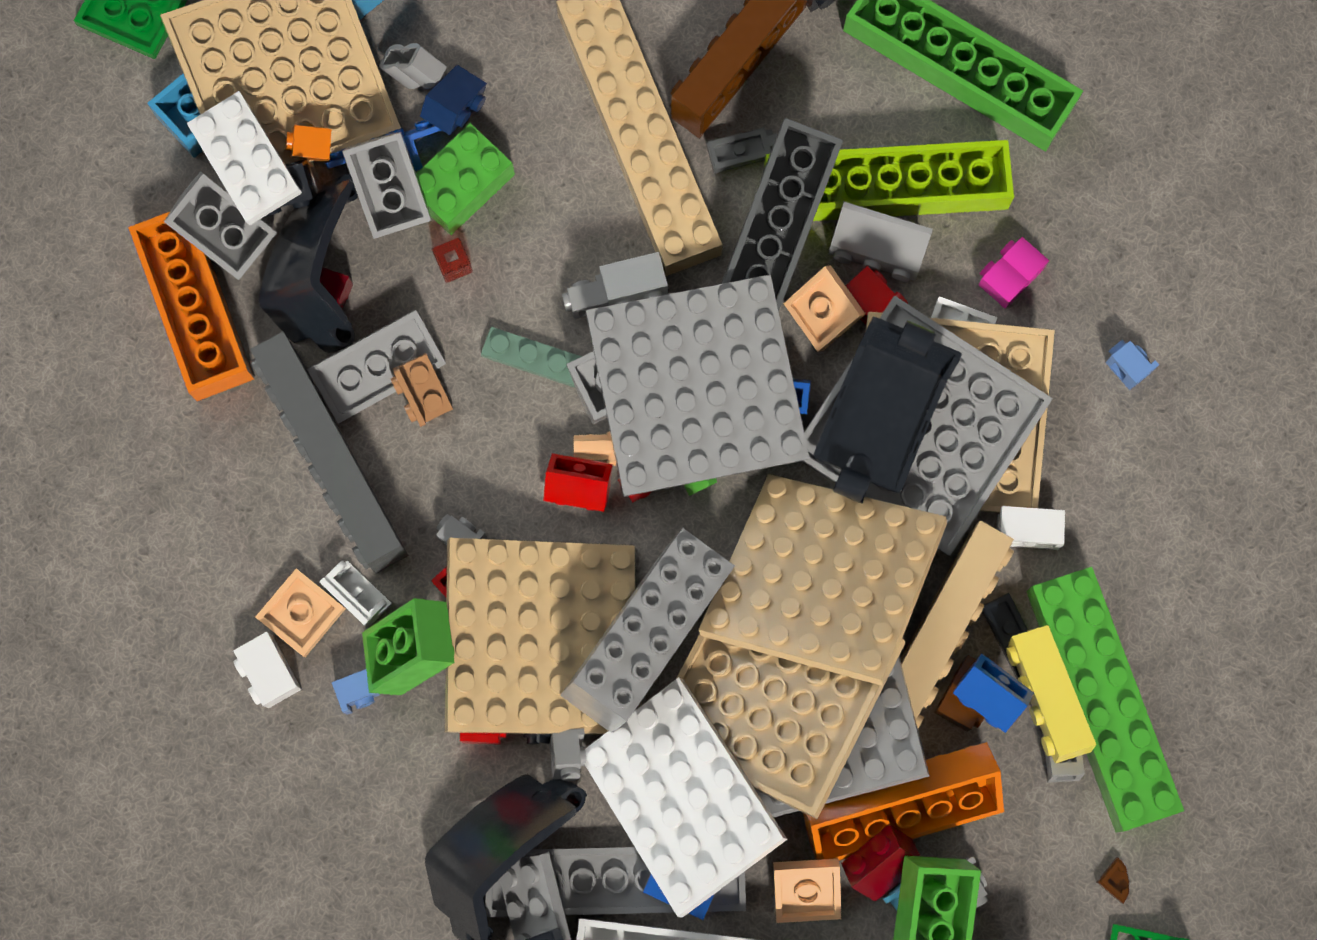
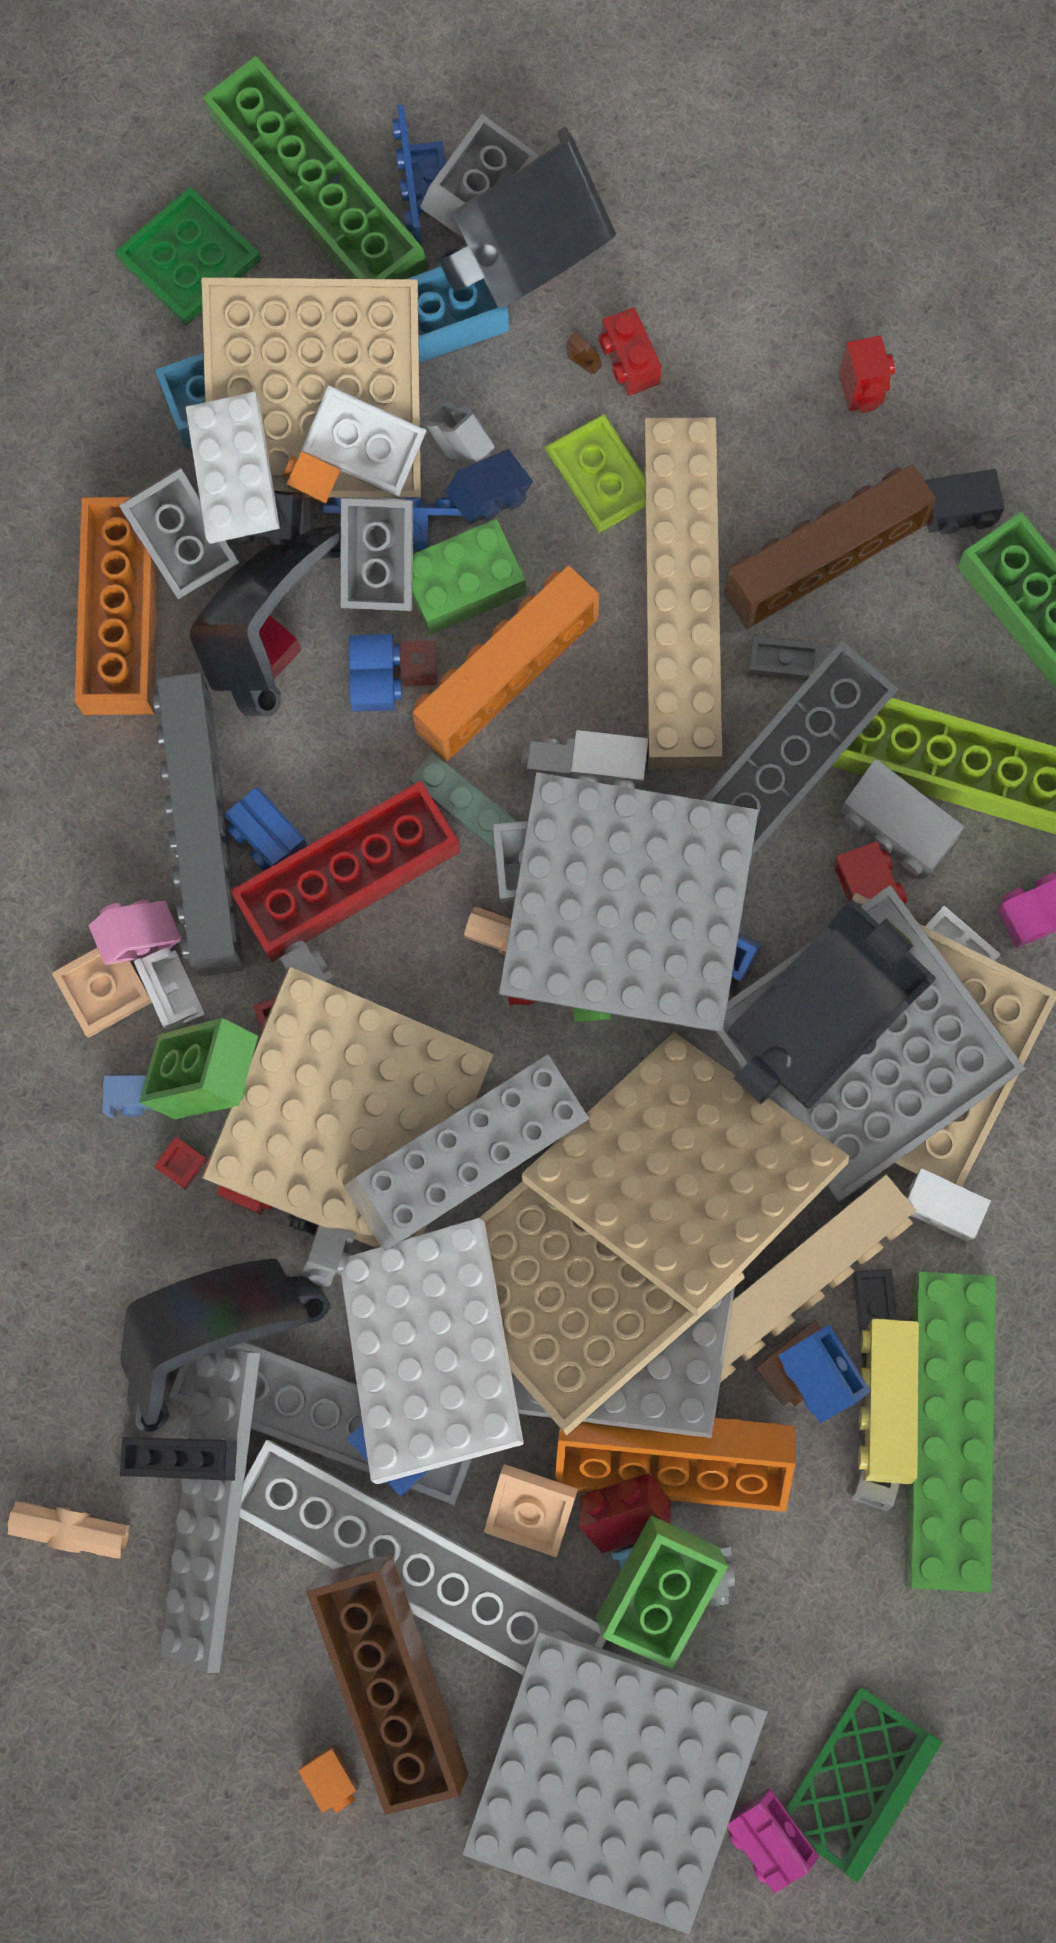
camera: 25 degrees right, 0 degrees up
(266, 670) = (40, 1035): white brick -> none
(309, 557) = (133, 930): none -> bright pink brick
(339, 99) = (363, 441): none -> white tile
(363, 370) = (289, 749): light grey plate -> none
(383, 439) = (263, 829): none -> blue brick
(418, 279) = (373, 672): none -> blue brick
(420, 728) = (180, 1163): none -> red plate
(422, 389) = (327, 792): medium nougat bracket -> none
(460, 445) = (346, 870): none -> red brick
(523, 234) = (506, 662): none -> orange brick
(535, 57) = (599, 472): none -> lime tile
(577, 482) = (457, 960): red brick -> none
(824, 308) = (809, 870): light nougat plate -> none
(1115, 880) = (883, 1639): reddish brown tile -> none

